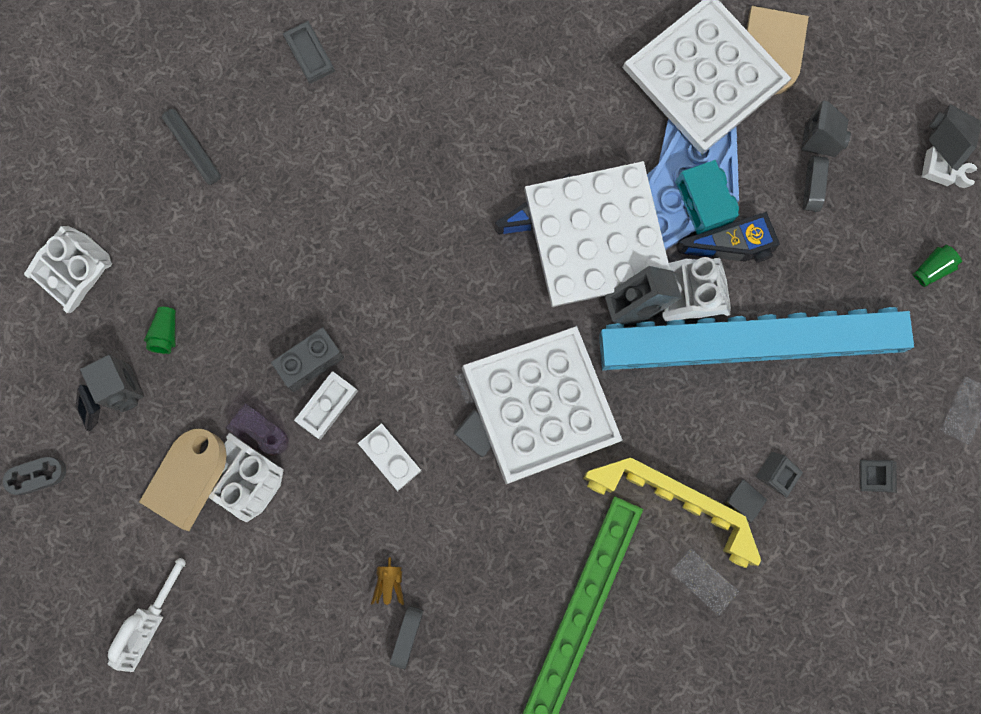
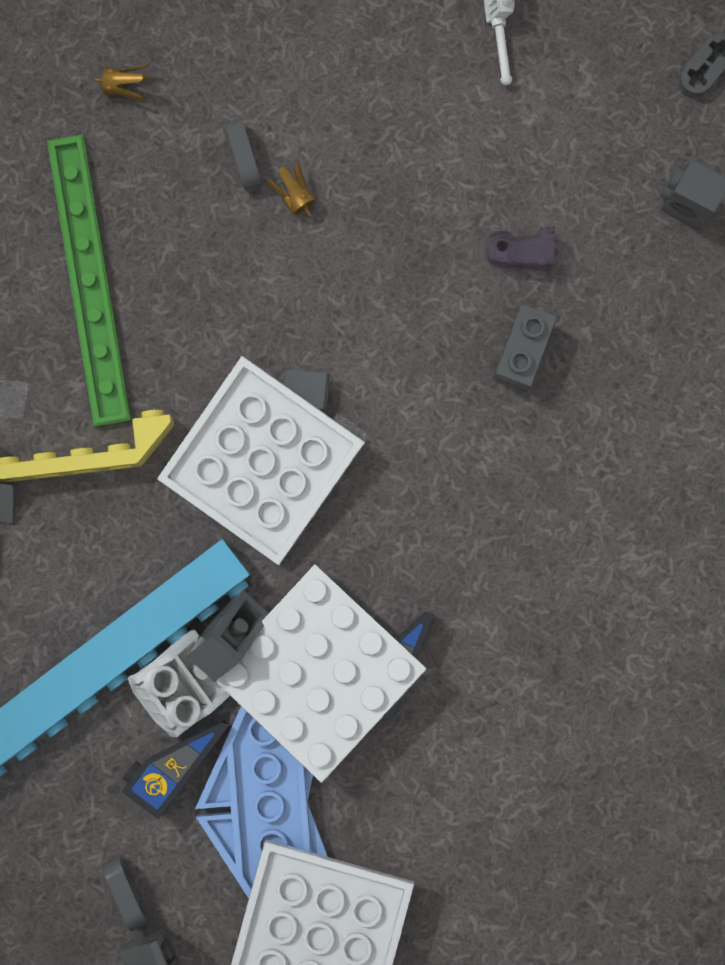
camera: 145 degrees right, 5 degrees up
(87, 408) = (703, 156): black tile -> none
(162, 331) = (690, 281): green cone -> none
(186, 478) = (558, 157): tan tile -> none
(246, 481) = (510, 183): white slope -> none
(326, 405) = (475, 318): white plate -> none
(389, 457) = (377, 311): white plate -> none
(707, 196) = (228, 791): teal brick -> none

